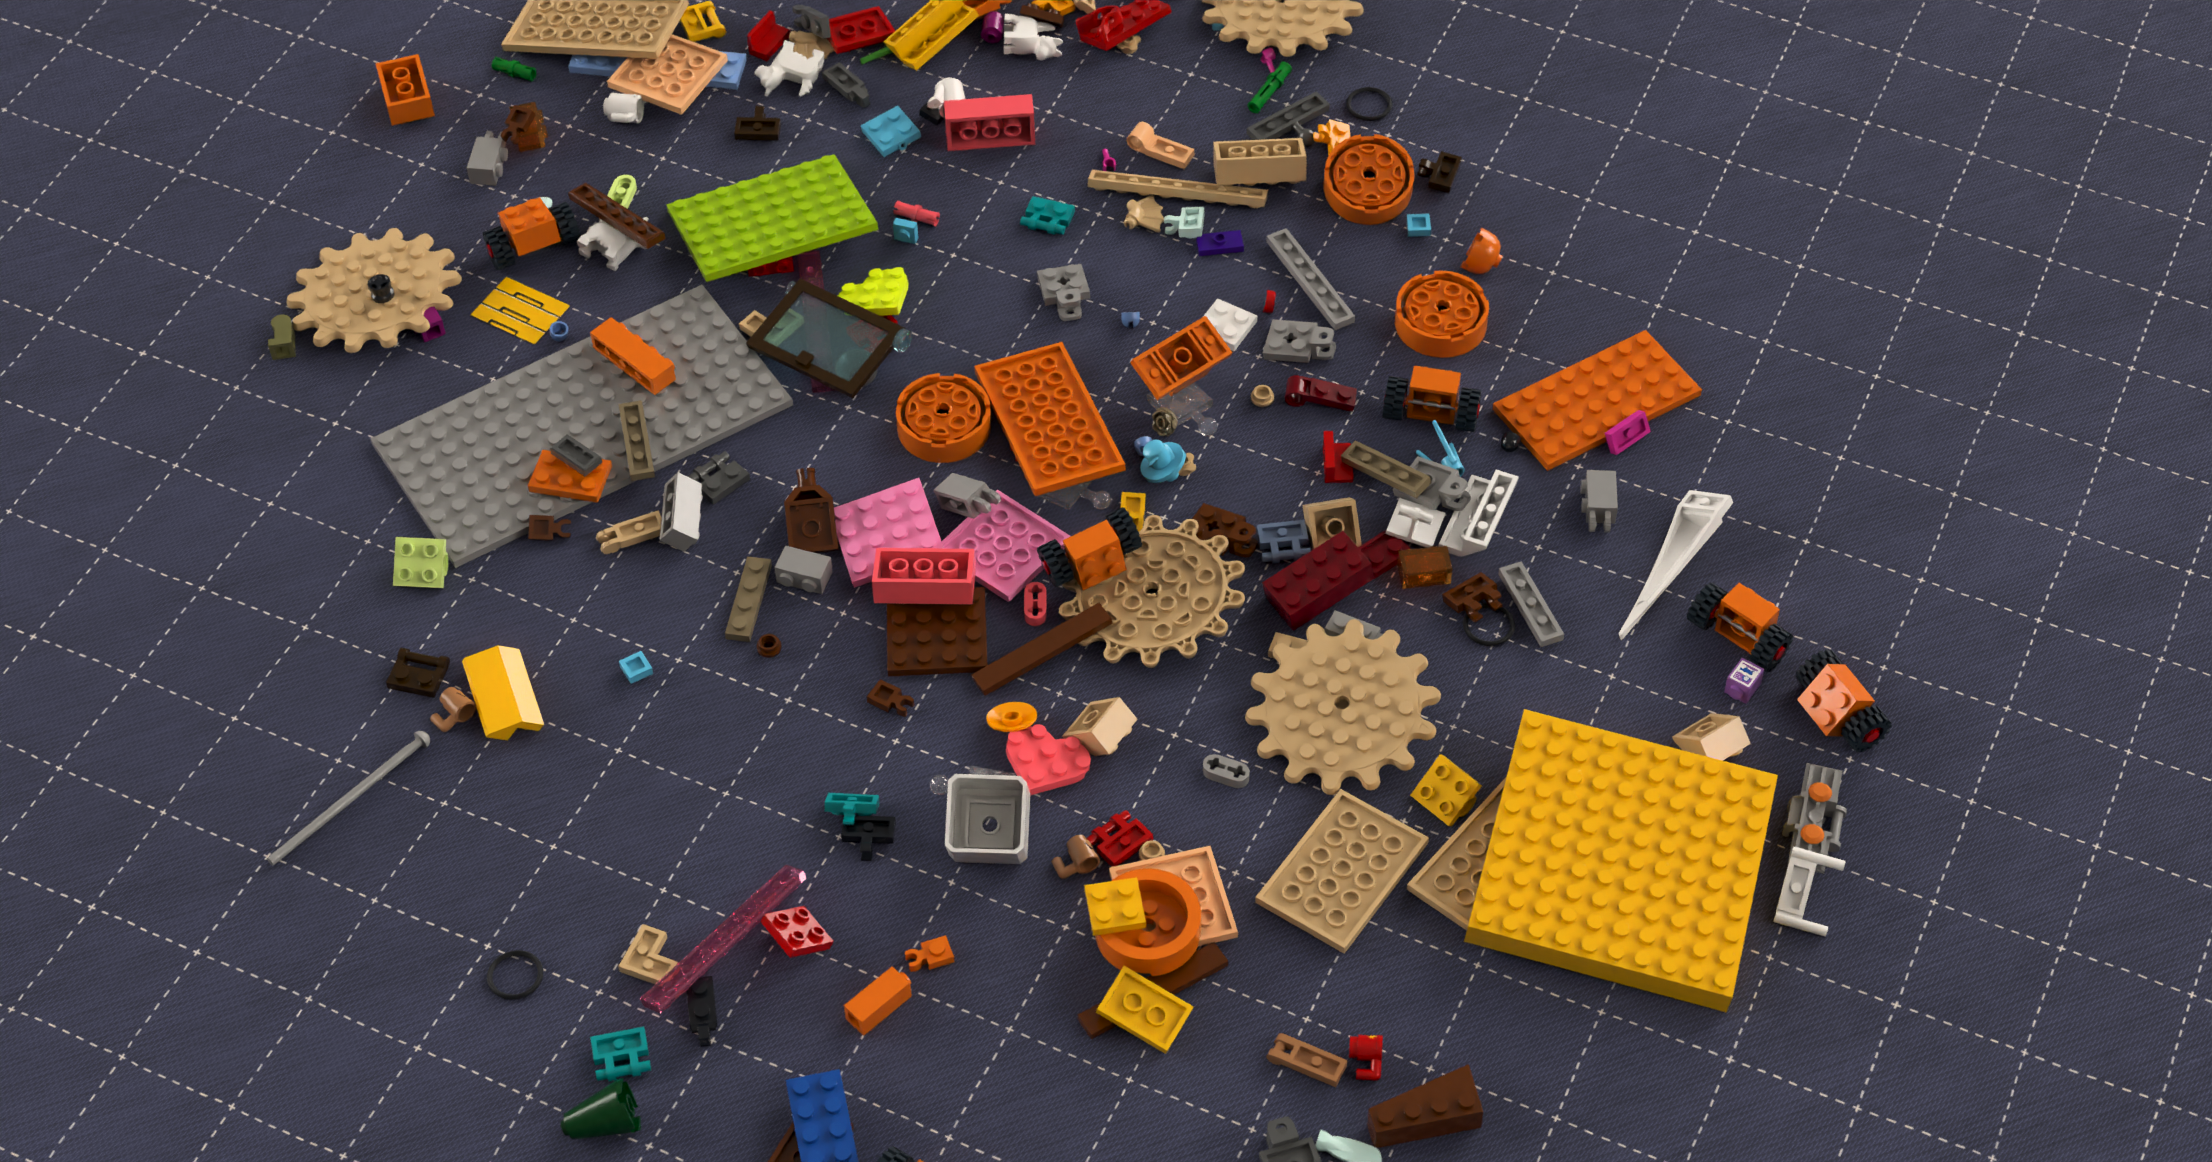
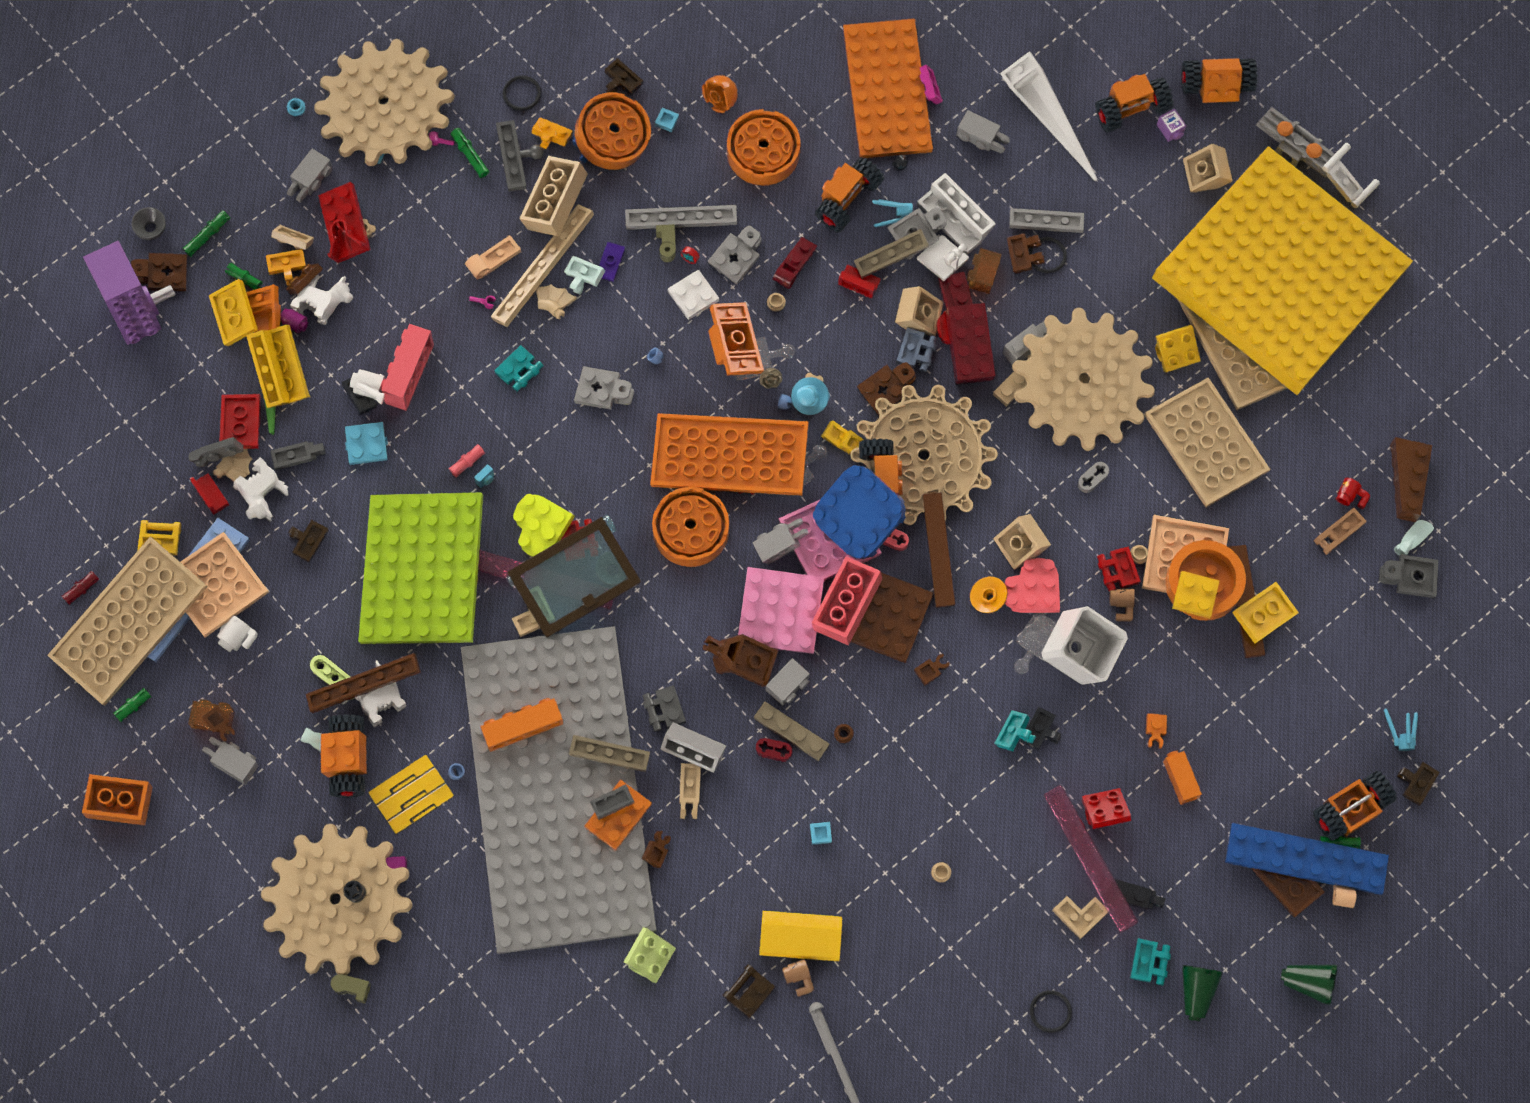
camera: 70 degrees left, 20 degrees up
(641, 799) = (941, 872): none -> tan plate
(713, 591) = (775, 745): none -> dark red beam
(1034, 540) = (859, 512): none -> blue plate
(1272, 278) = (668, 245): none -> olive leg

